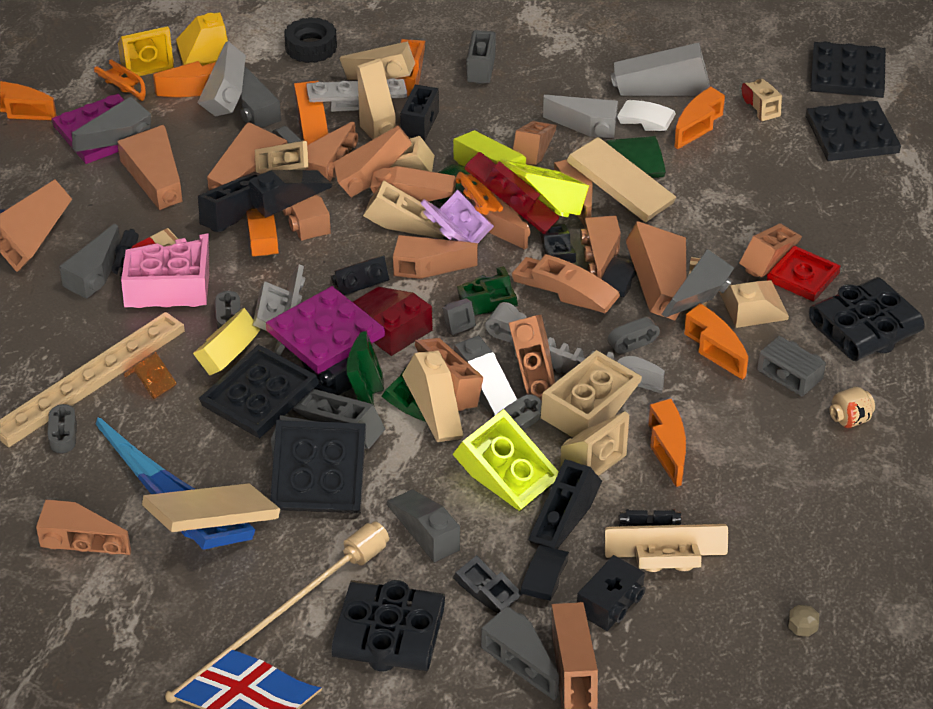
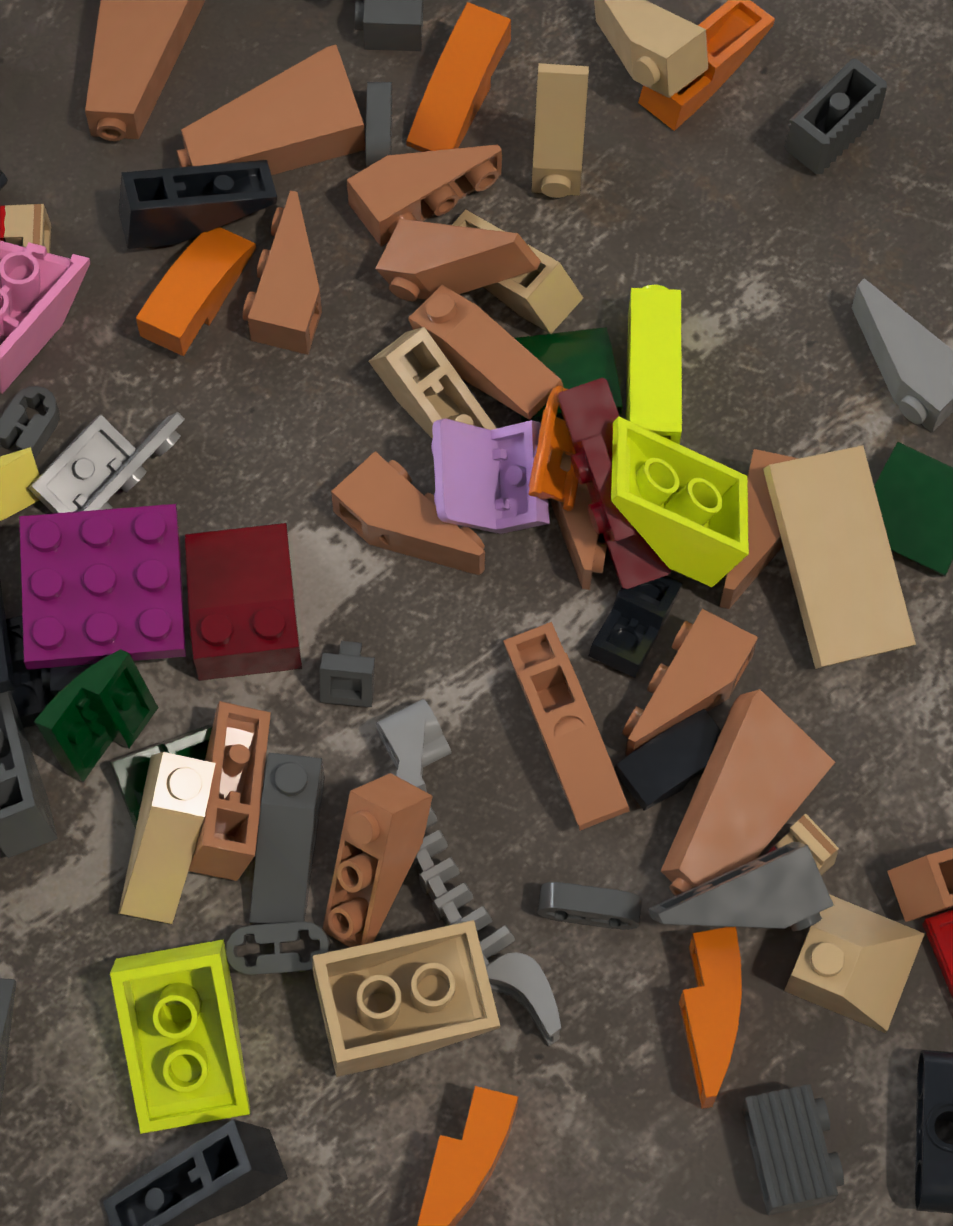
camera: 35 degrees right, 25 degrees up
(282, 157) = (308, 173): tan slope -> none
(284, 188) = (268, 244): black slope -> none
(344, 94) = (516, 63): light grey bracket -> none
(361, 275) = (256, 485): black hinge -> none
(420, 111) = (630, 187): black brick -> none
(488, 292) = (439, 653): dark green slope -> none
(534, 140) = (774, 364): nougat slope -> none
(599, 445) = (322, 1108): tan slope -> none

